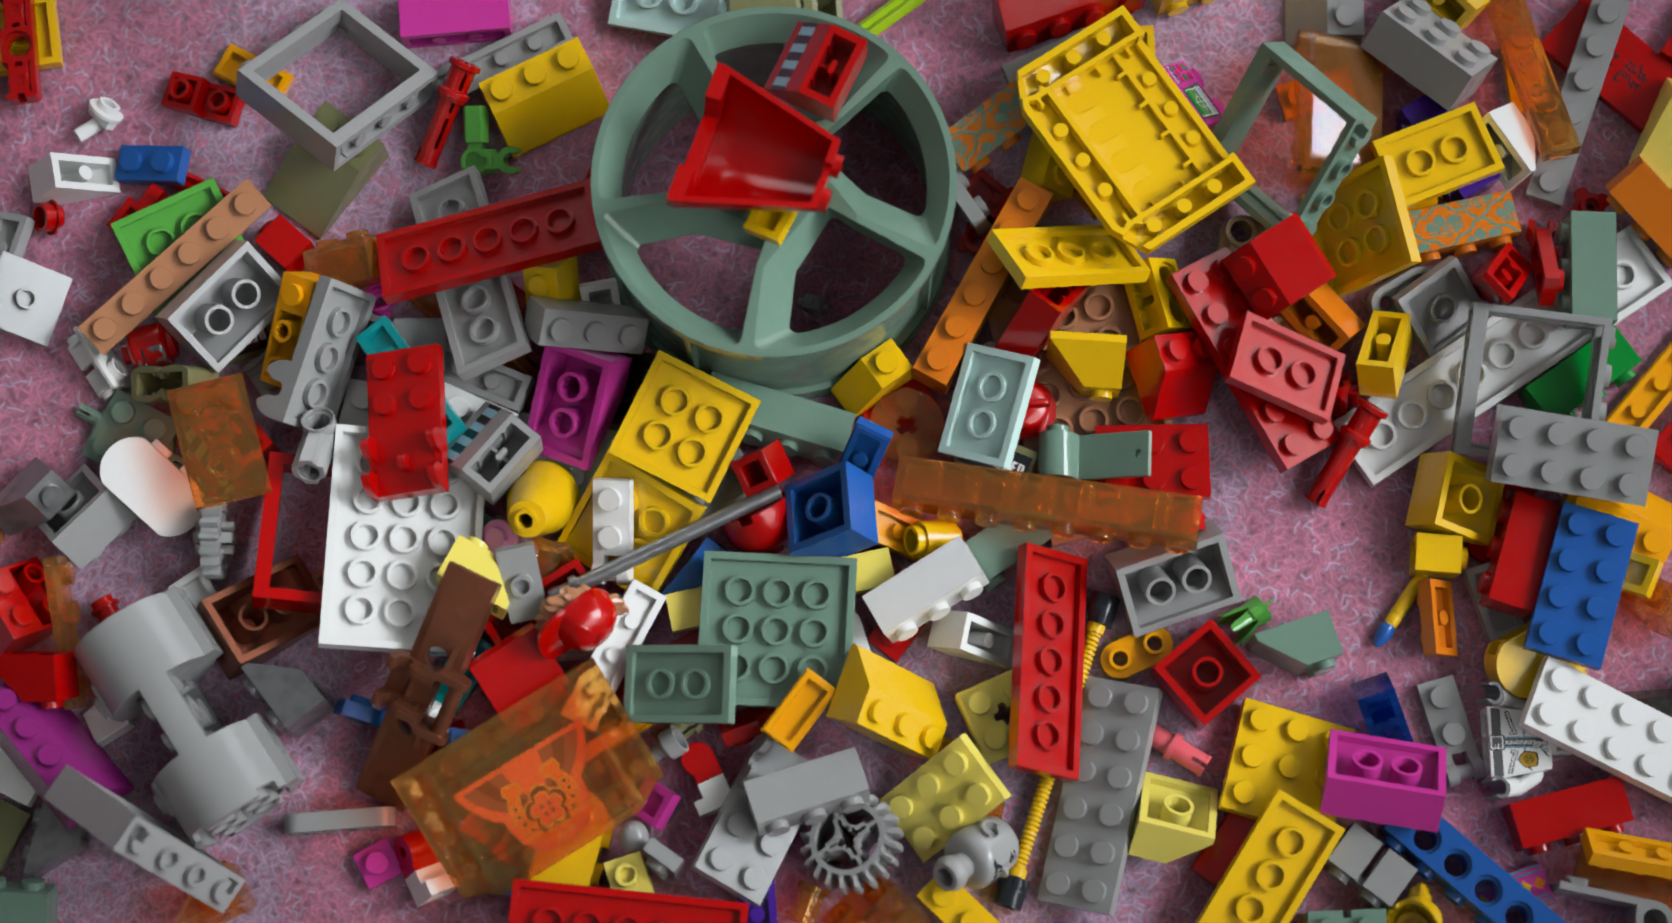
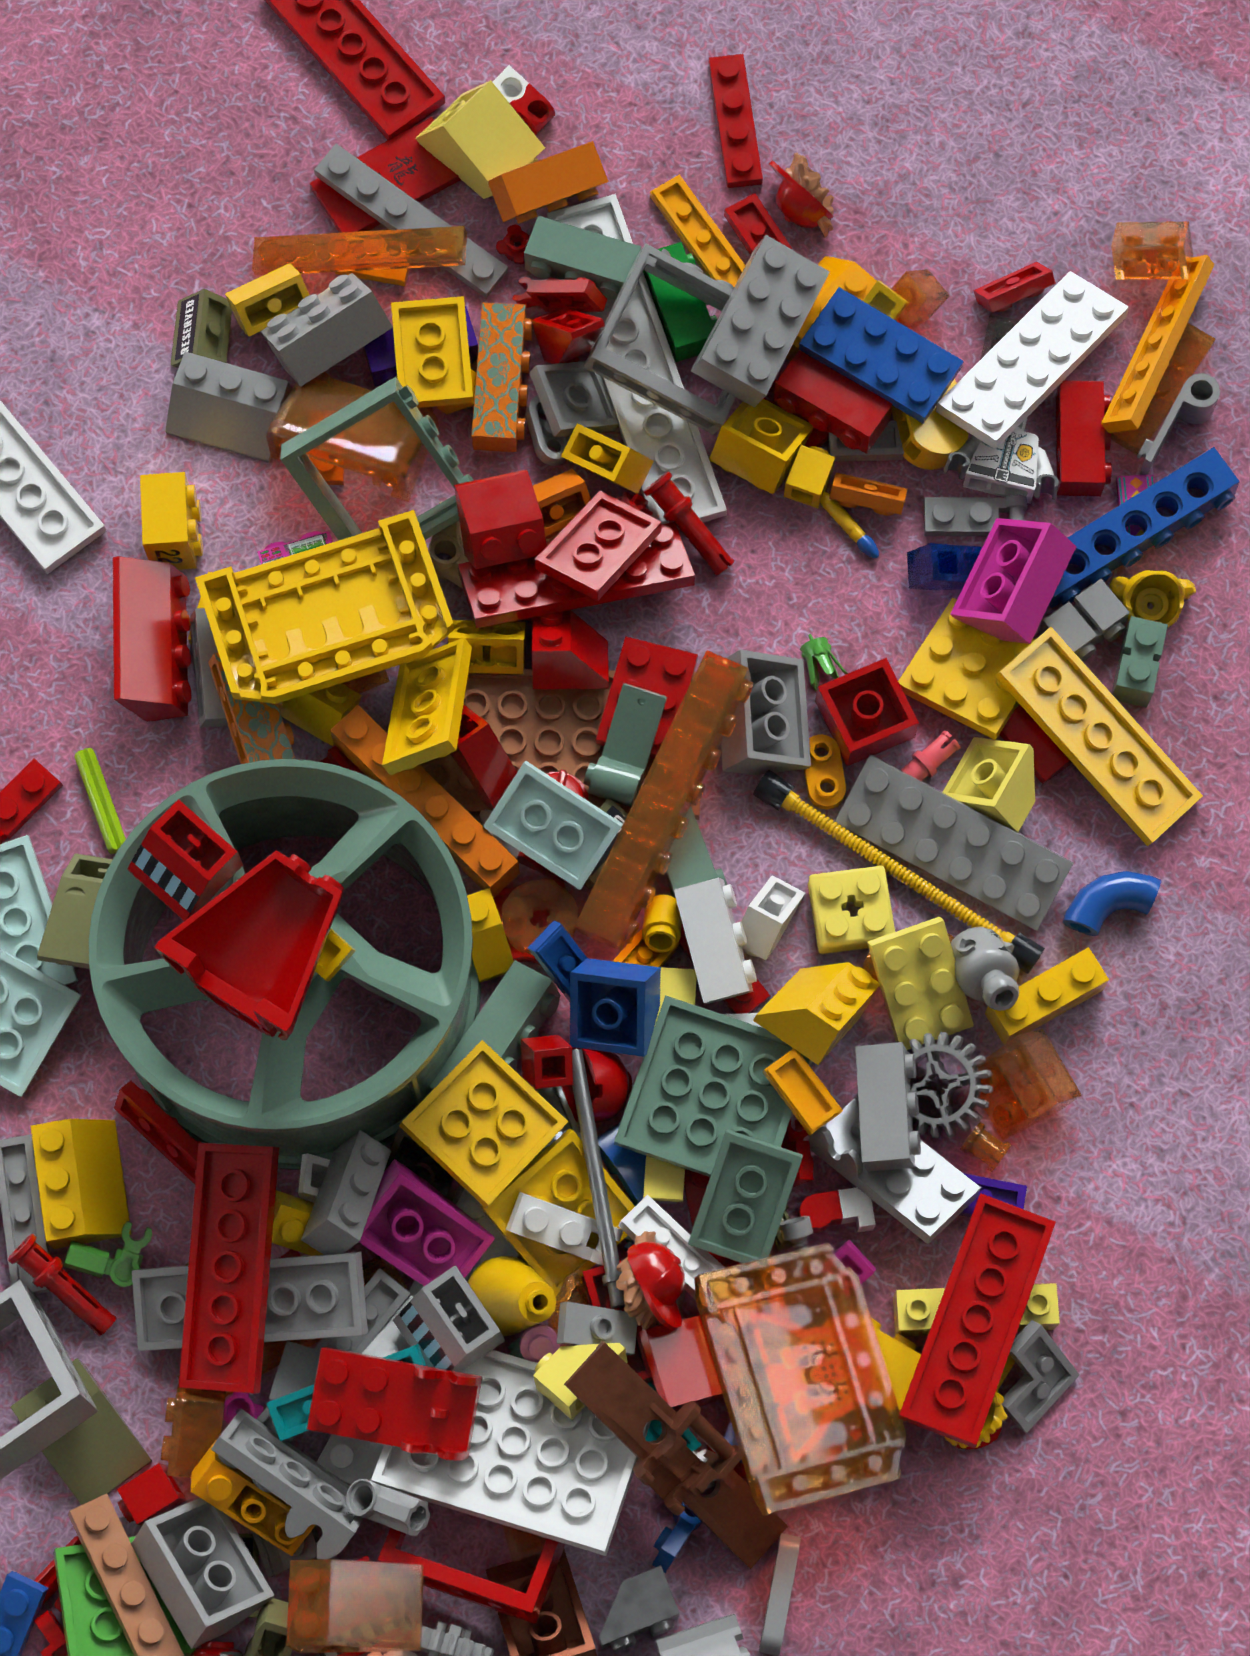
camera: 75 degrees left, 5 degrees down
(378, 863) = (833, 1566): dark pink plate -> none
(421, 868) = (850, 1518): leg -> none
(660, 860) = (906, 1274): light grey plate -> none
(1047, 663) = (817, 848): red plate -> none
(1089, 362) = (537, 721): yellow slope -> none
(1300, 645) = (864, 614): sand green slope -> none
(1367, 228) = (485, 428): yellow plate -> none
(1513, 142) = (439, 283): slope -> none

